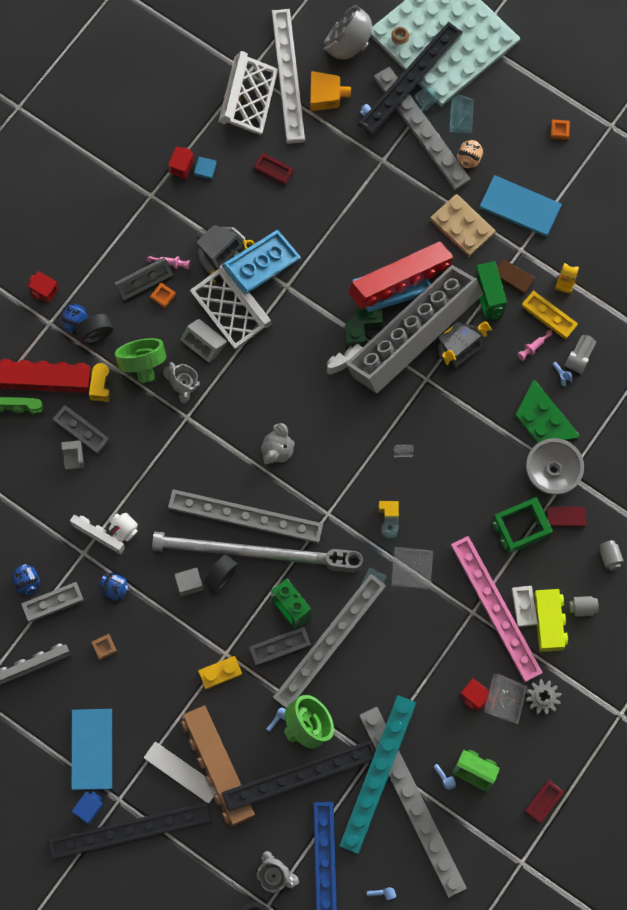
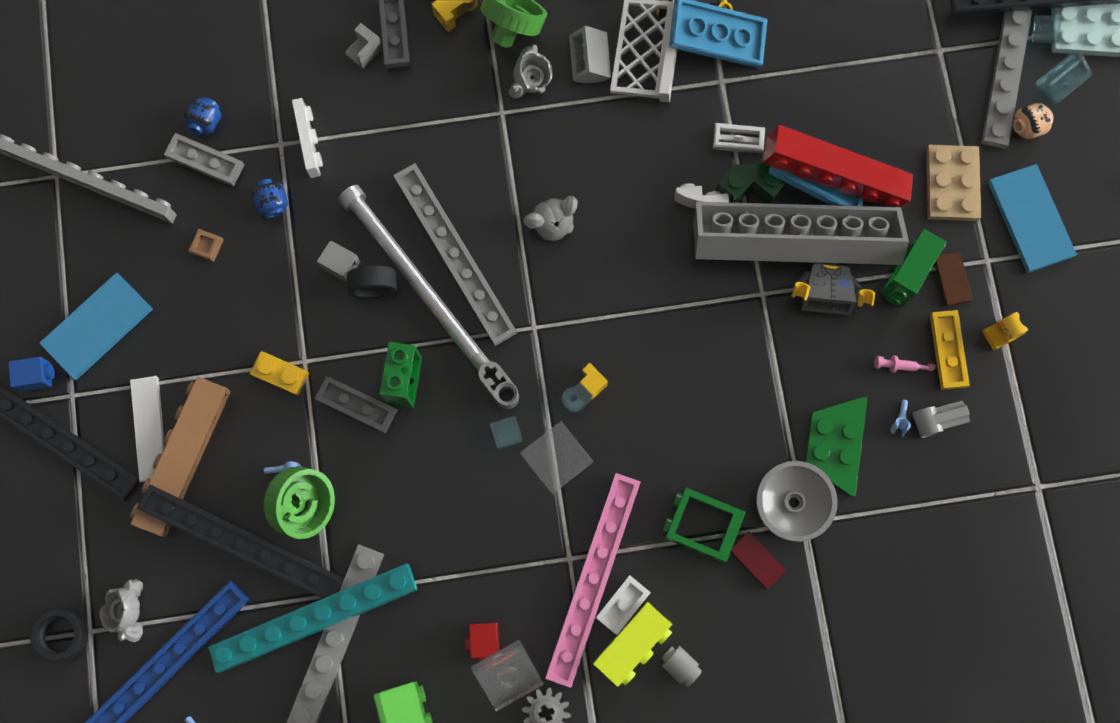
camera: 50 degrees right, 5 degrees up
(123, 526) = (335, 153): white head -> none
(317, 318) = (737, 147): none -> white tile
(329, 641) = (404, 446): light grey plate -> none
(403, 451) = (665, 338): clear tile -> none
(449, 782) = (370, 691): light blue hand -> none
(611, 555) = (761, 644): light grey brick -> none

